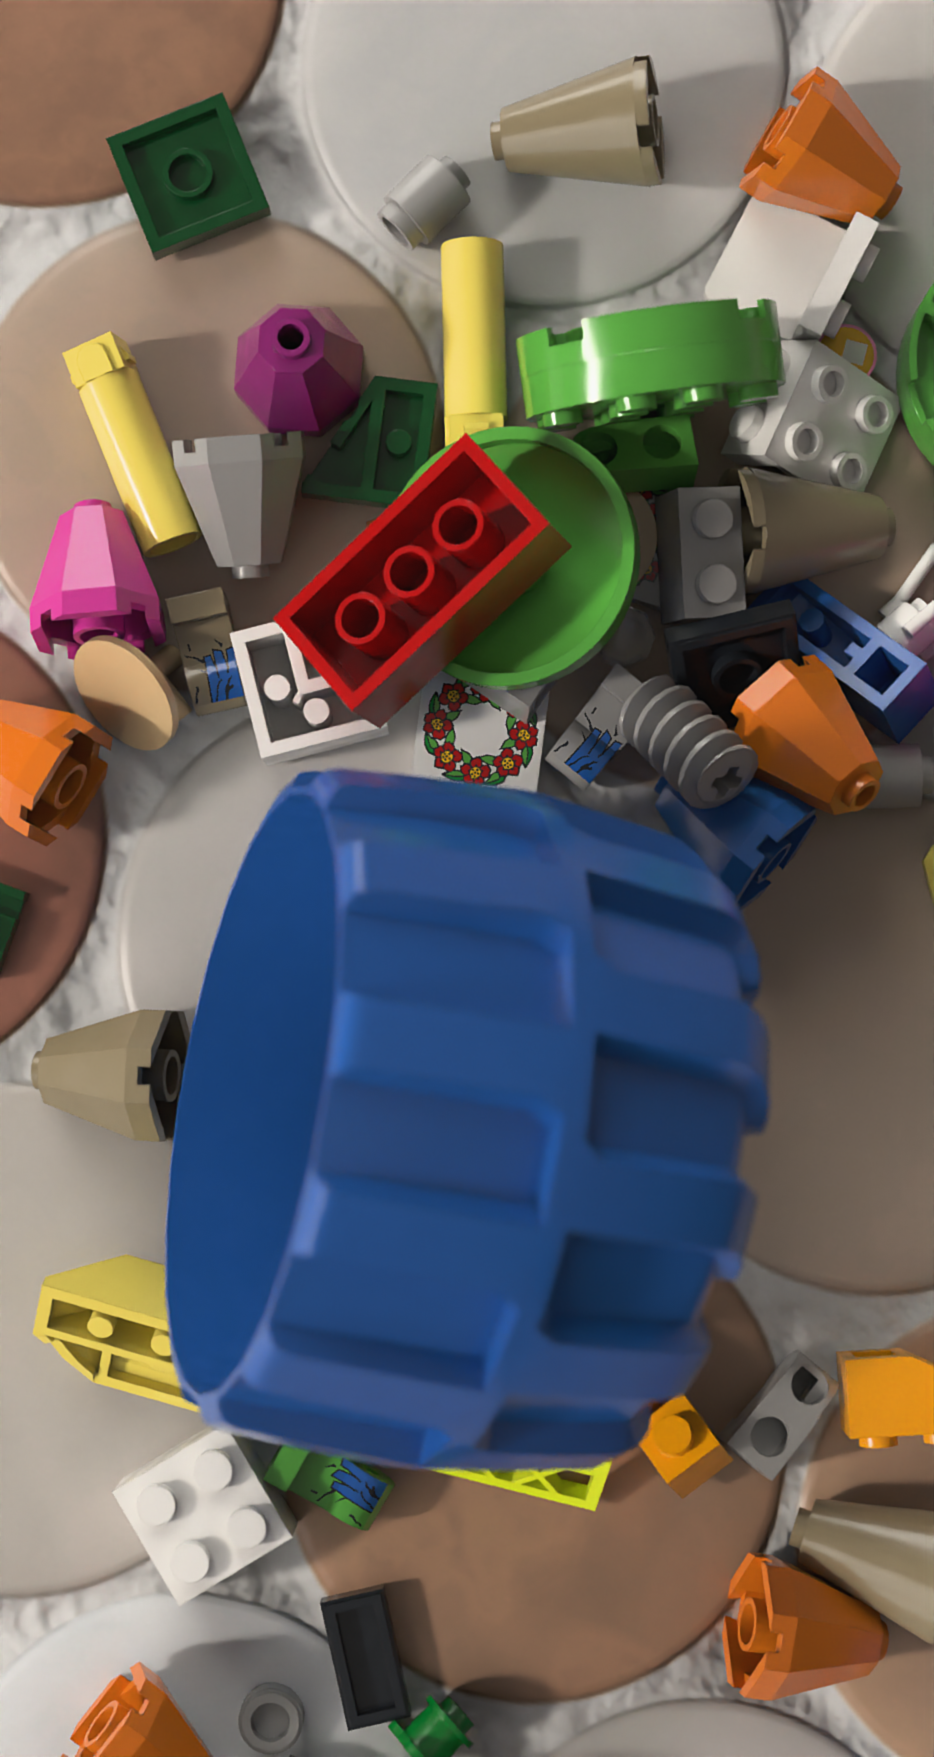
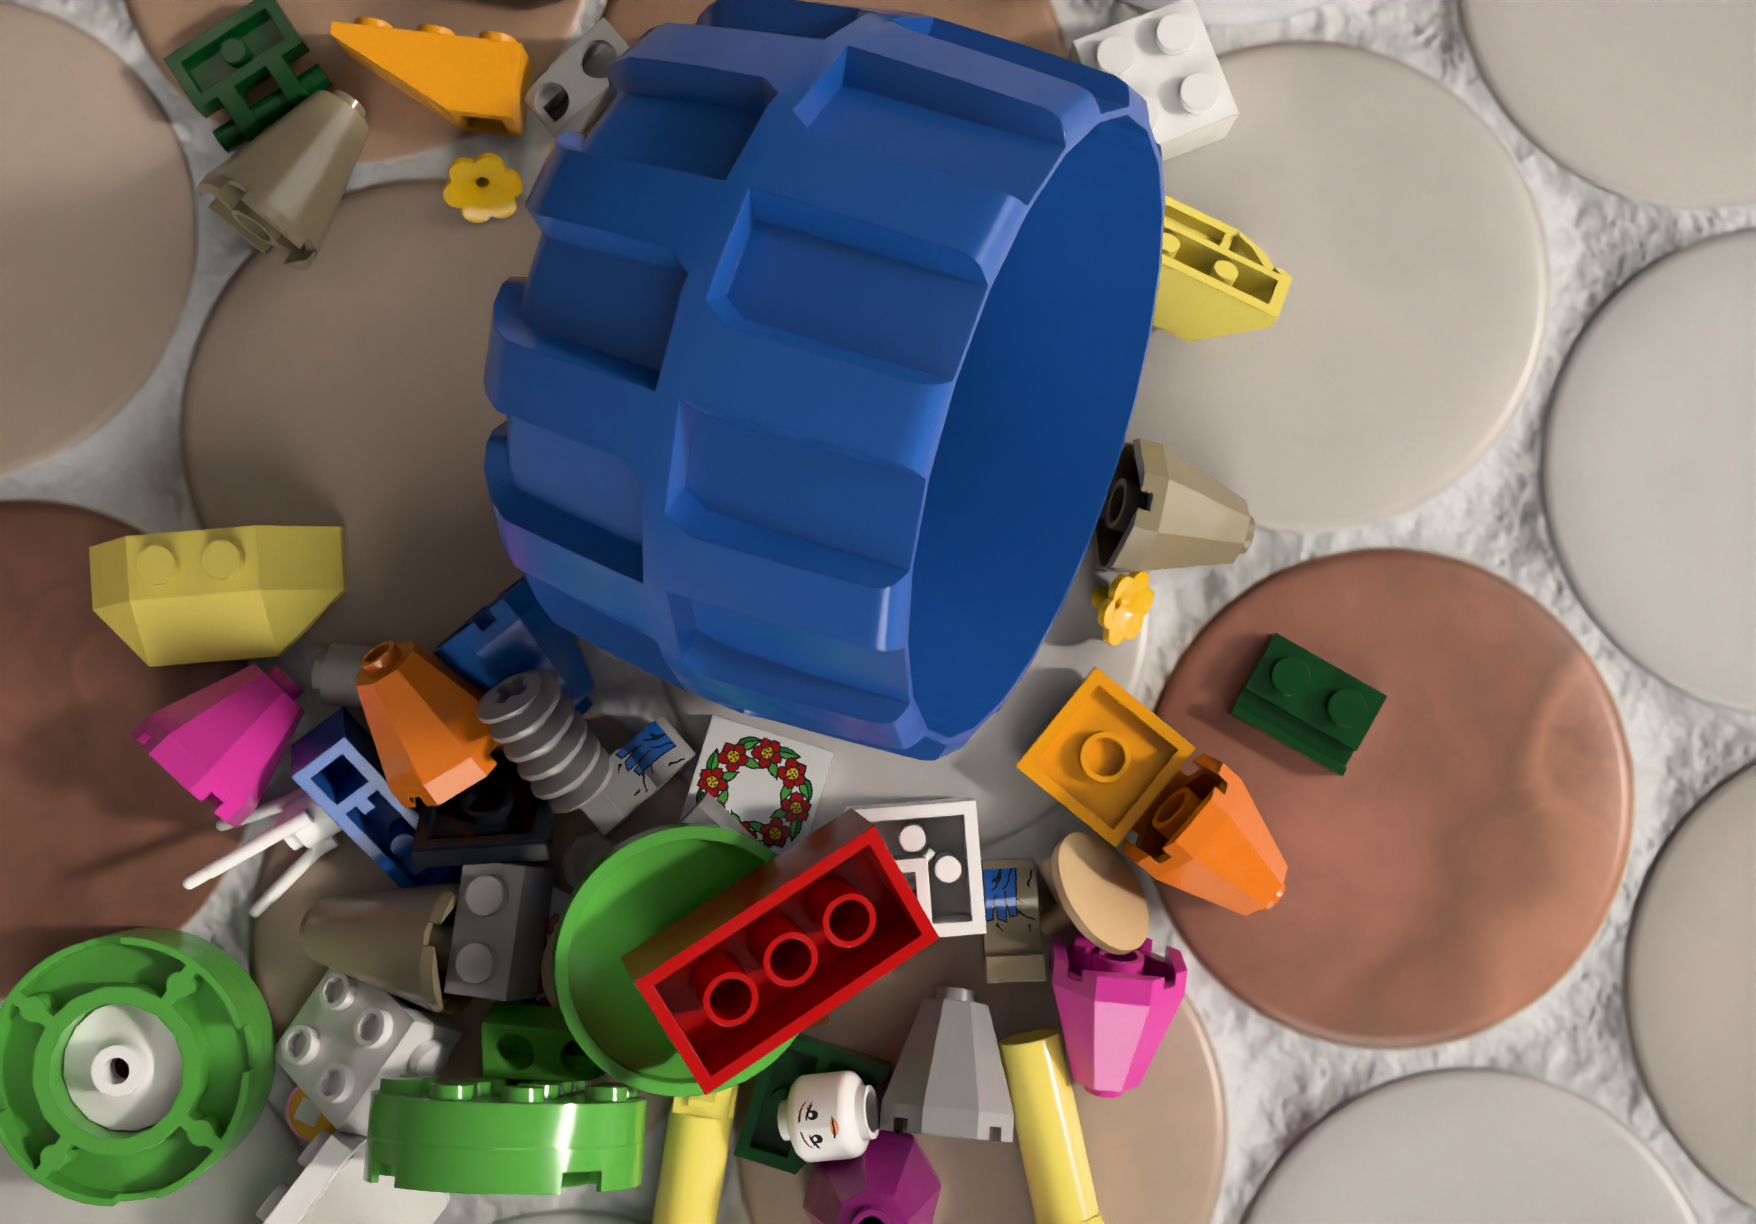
camera: 170 degrees left, 0 degrees up
(143, 826) = (1104, 756): none -> light orange plate
(149, 977) = (1123, 606): none -> yellow plant
(350, 435) = (829, 1116): none -> white head
(863, 1287) = (482, 188): none -> yellow plant

